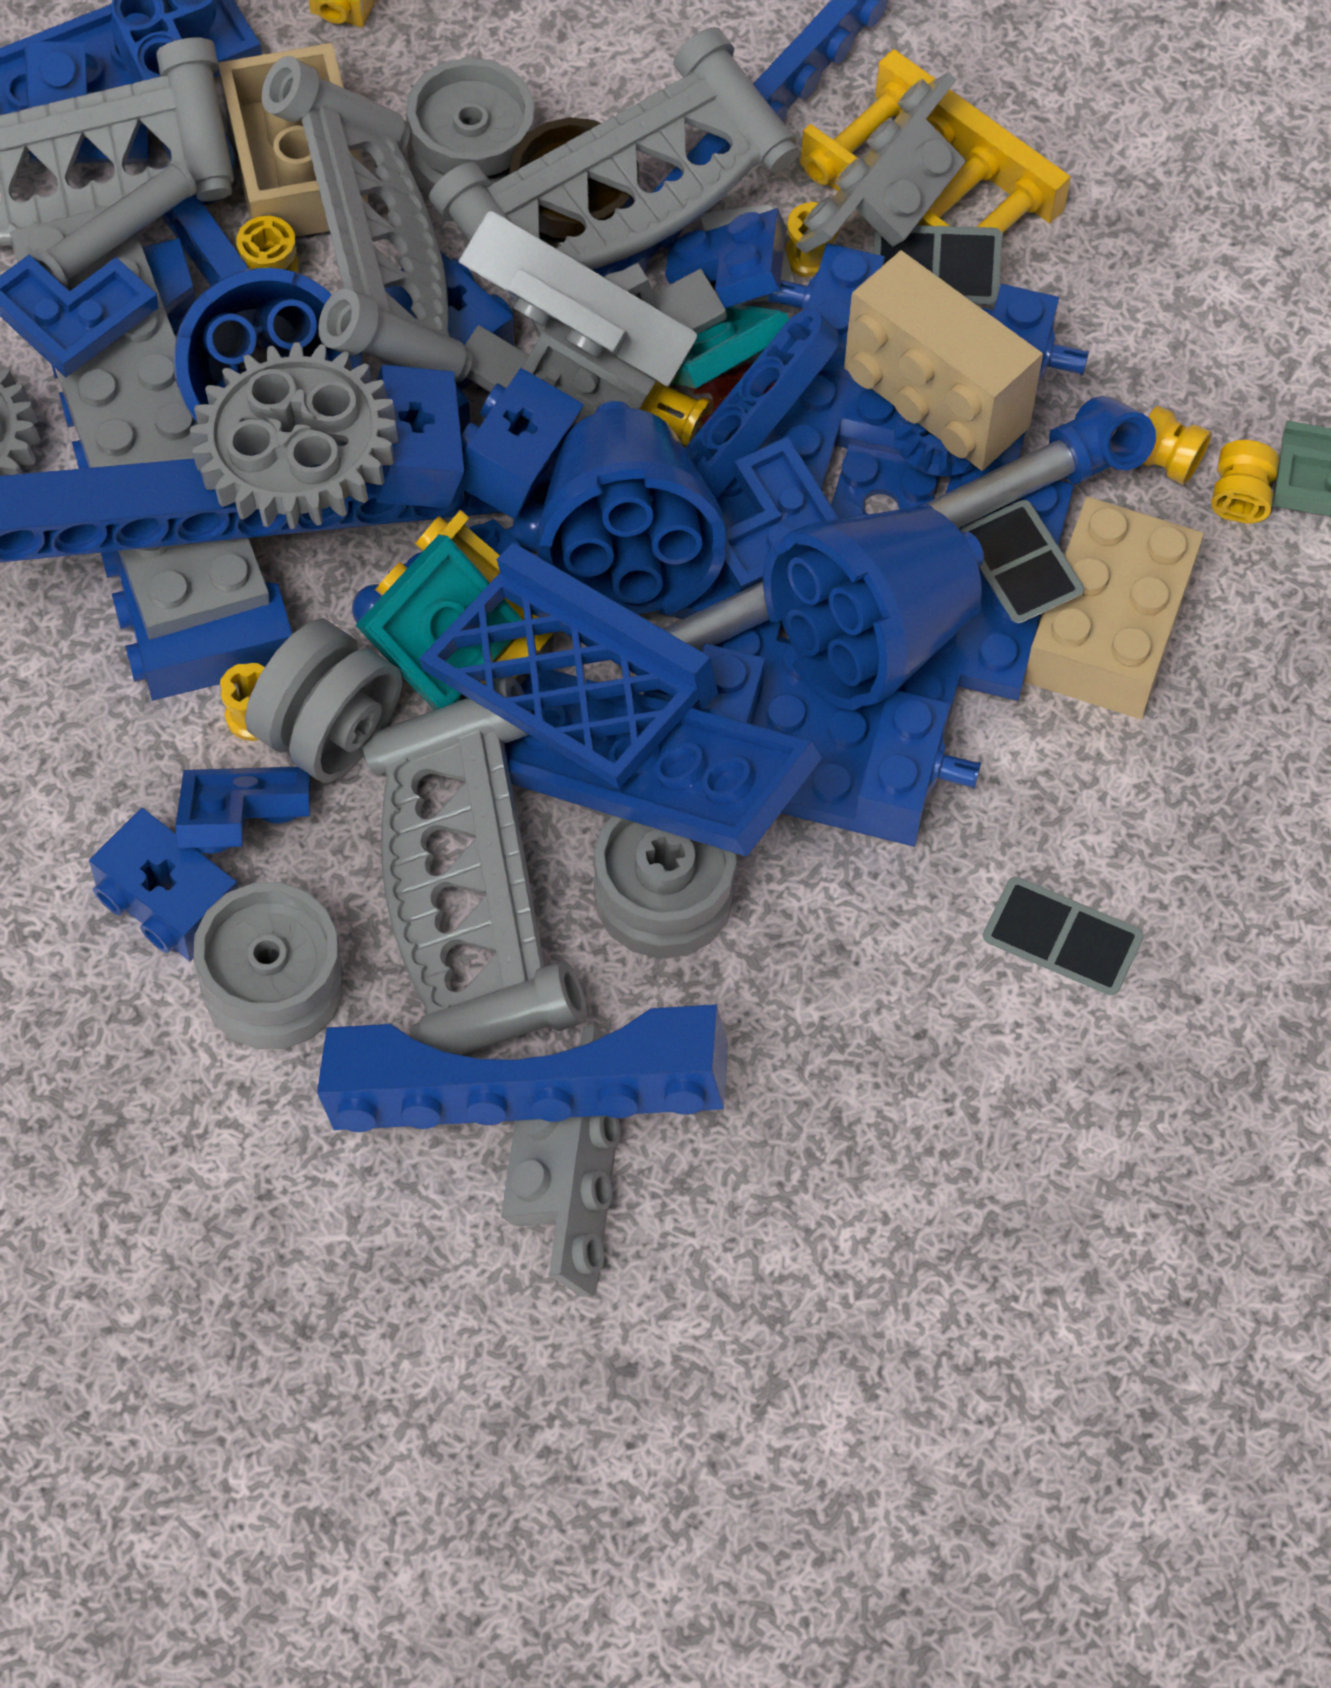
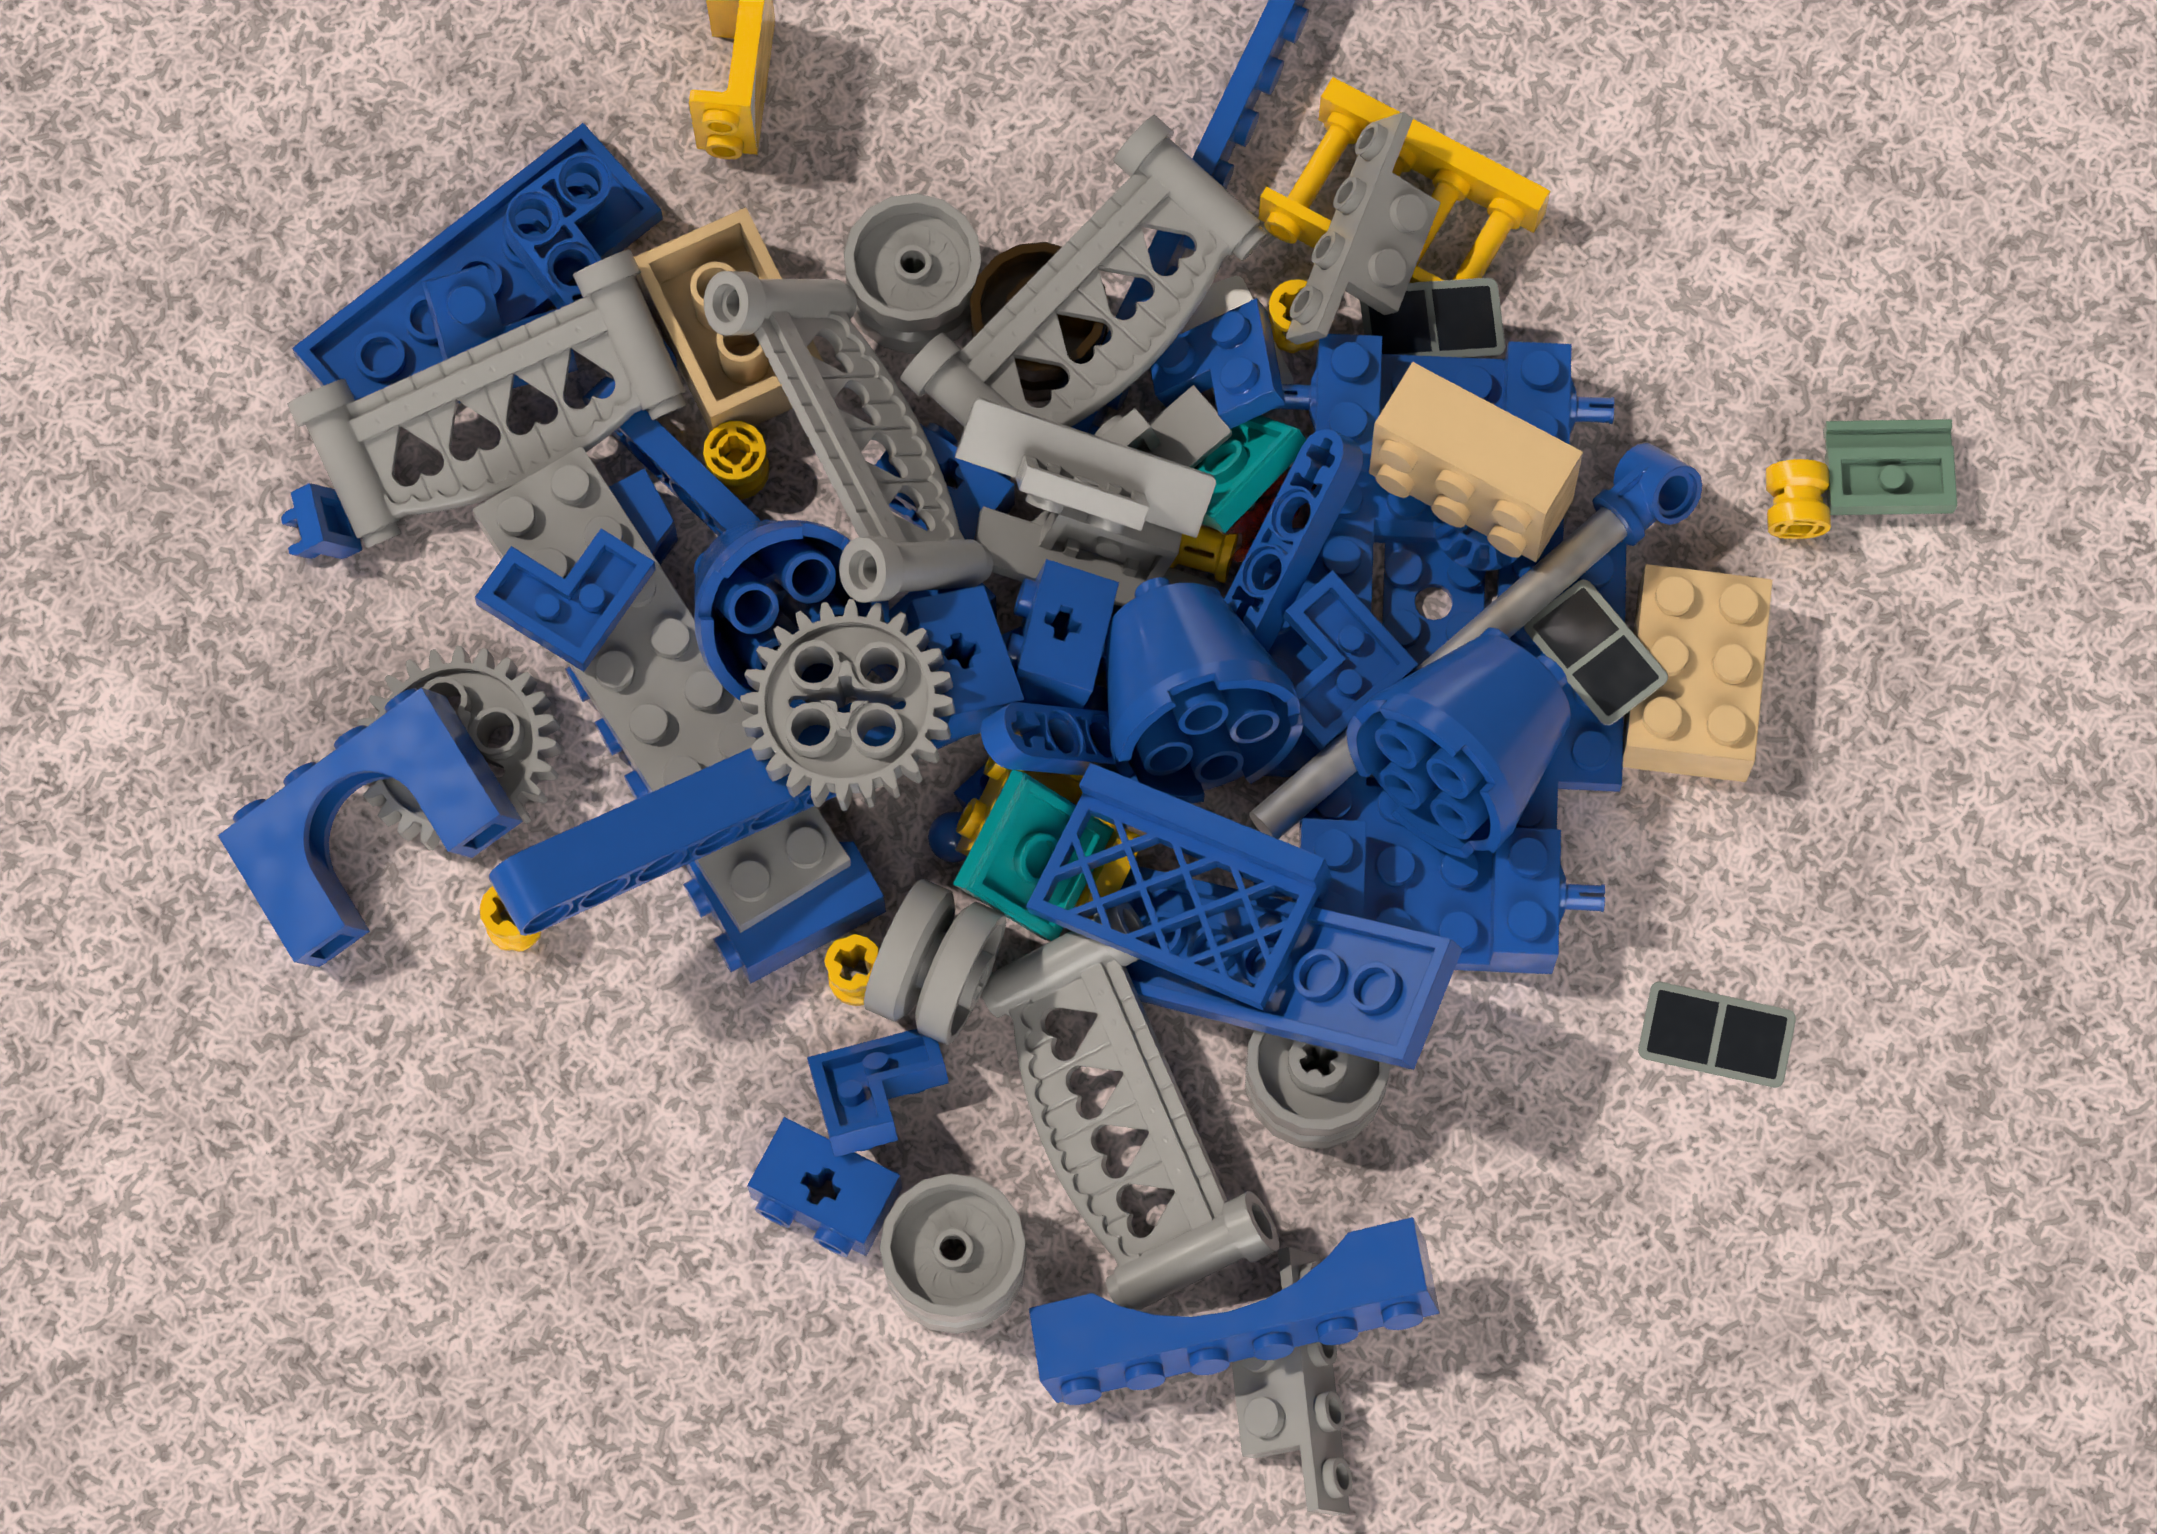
camera: 10 degrees left, 10 degrees up
(117, 223) = (587, 484): light grey pin -> none
(455, 504) = (1036, 750): none -> blue beam
(1176, 446) = (1721, 471): yellow wheel -> none

